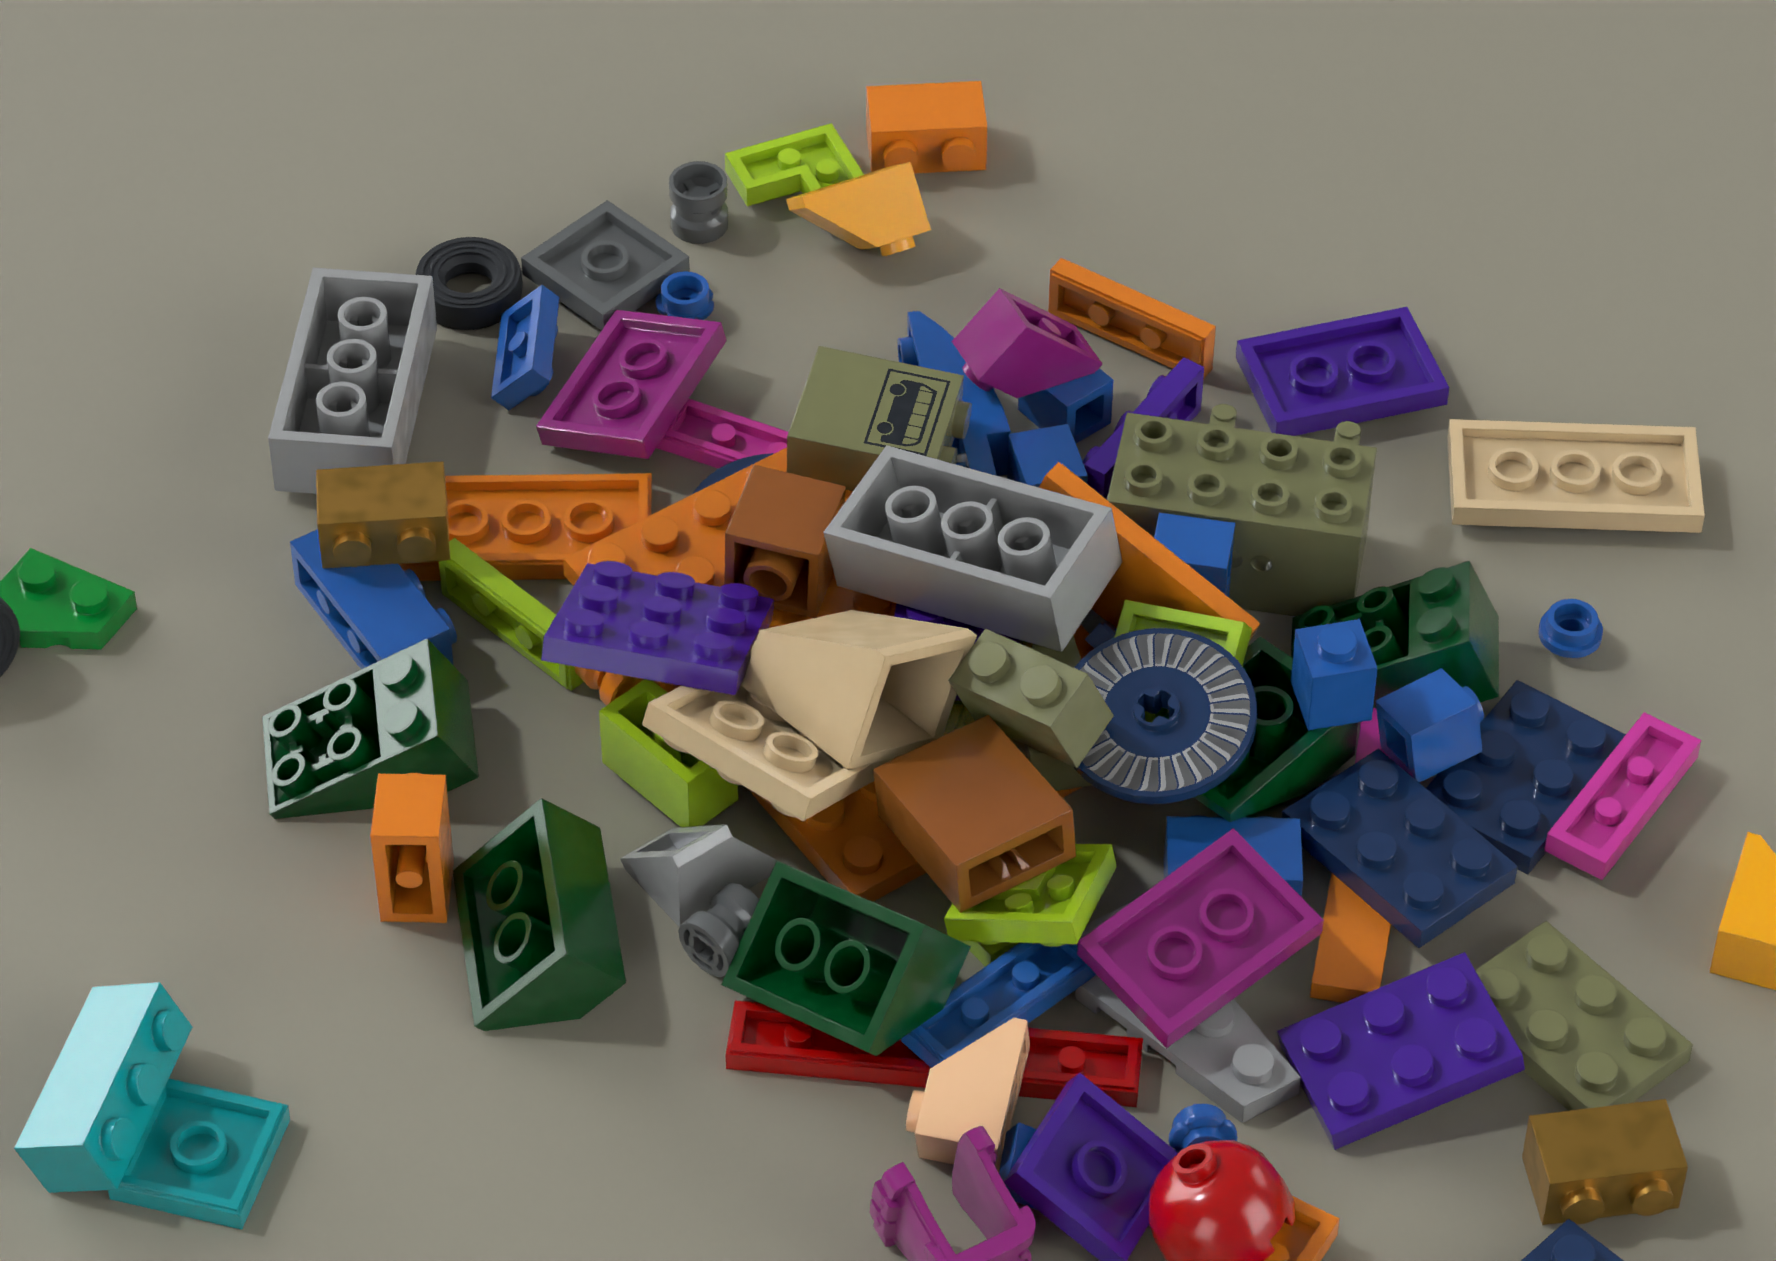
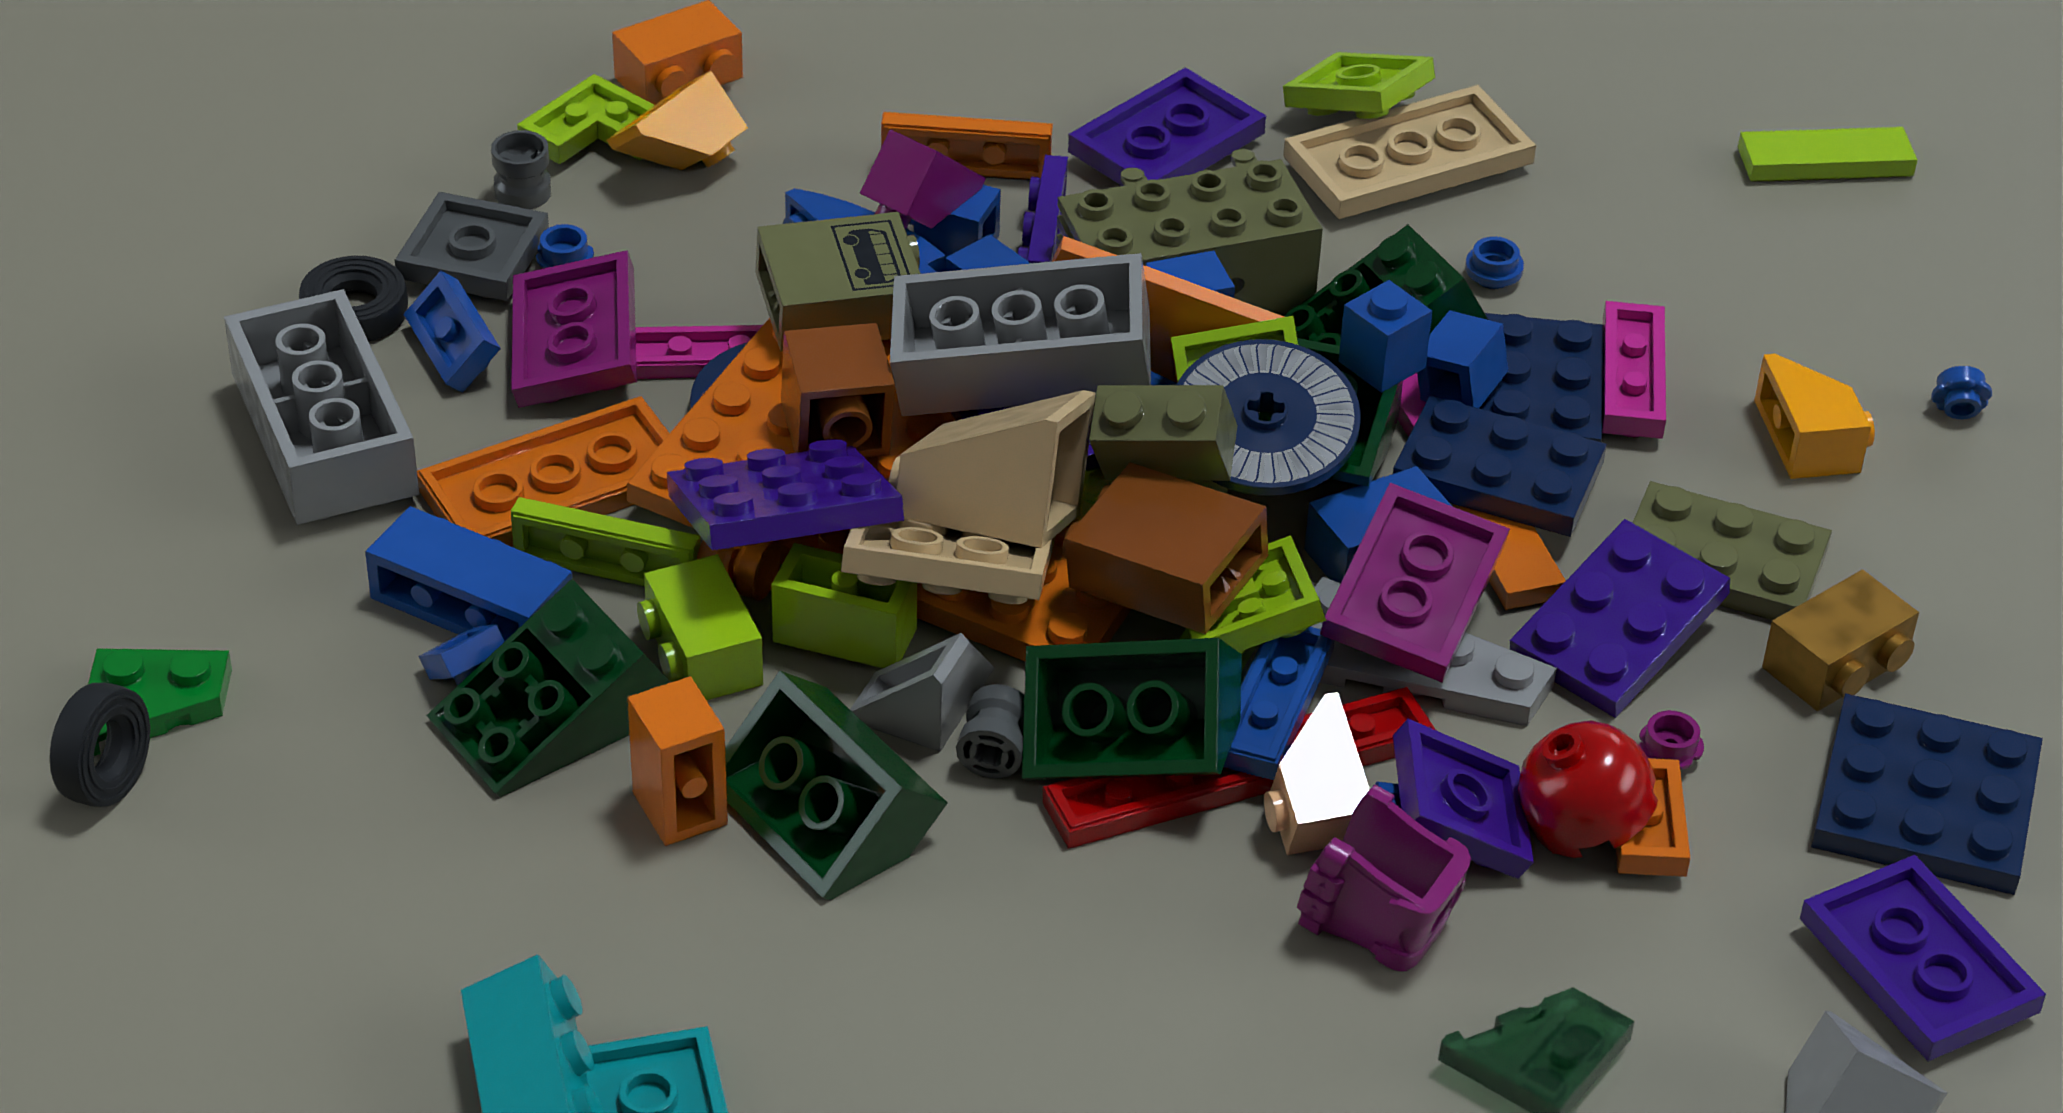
camera: 30 degrees left, 5 degrees down
(319, 669) = (461, 654): none -> blue plate
(382, 514) = (451, 493): pearl gold brick -> none
(537, 729) = (702, 627): none -> lime brick
(1200, 1124) = (1514, 736): blue plate -> none
(1361, 1183) = (1672, 737): none -> magenta plate
(1568, 384) = (1358, 83): none -> lime plate

